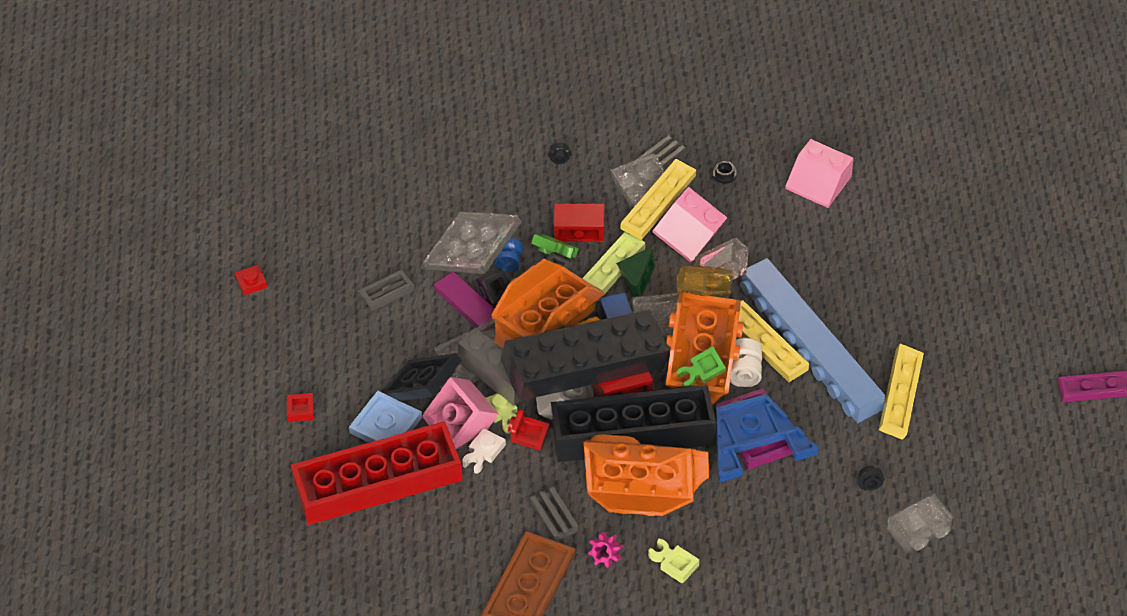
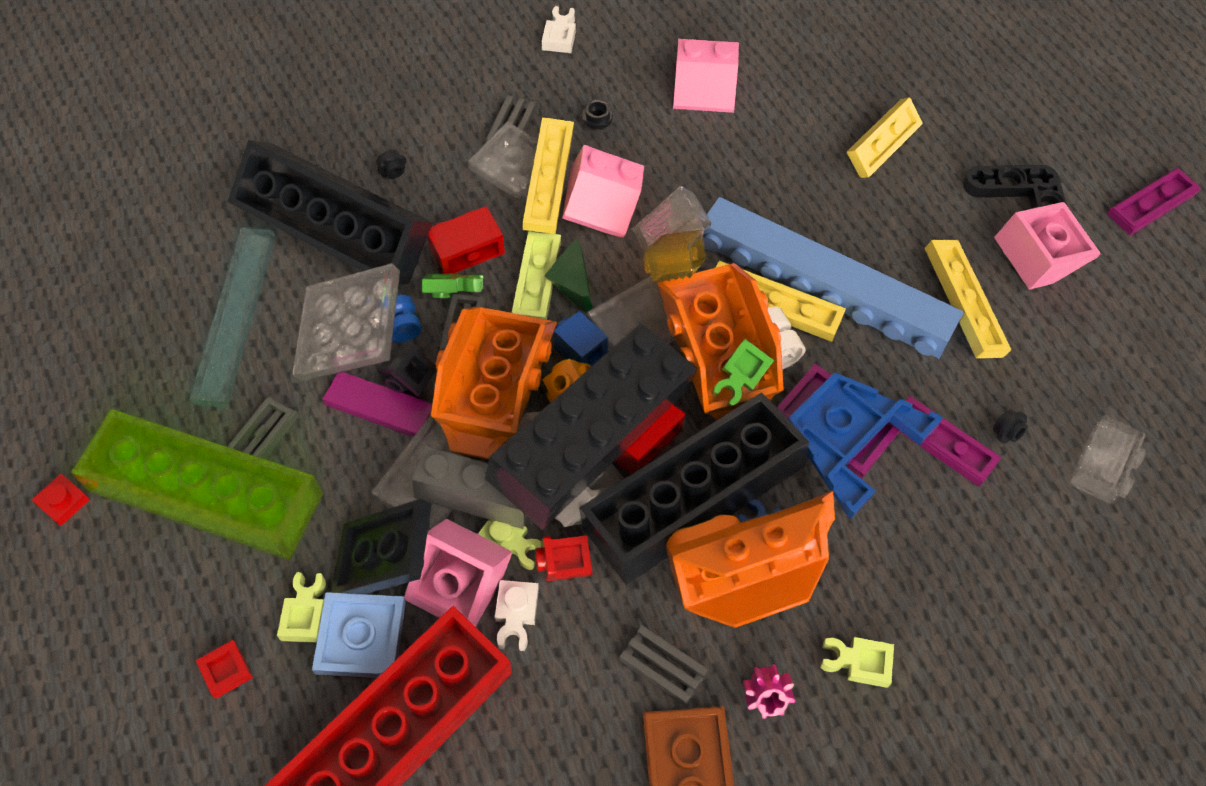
camera: 30 degrees left, 10 degrees up
(335, 301) = (199, 483): none -> clear neon green brick
(358, 396) = (302, 614): none -> yellowish green plate
(405, 212) = (233, 319): none -> clear light blue tile
(498, 167) = (328, 210): none -> black brick
(735, 104) = (560, 32): none -> white plate
(825, 475) = (958, 449): none -> magenta tile
(923, 265) = (884, 138): none -> light yellow plate
(982, 378) = (1045, 244): none -> bright pink slope
(1012, 345) = (1023, 174): none -> black beam

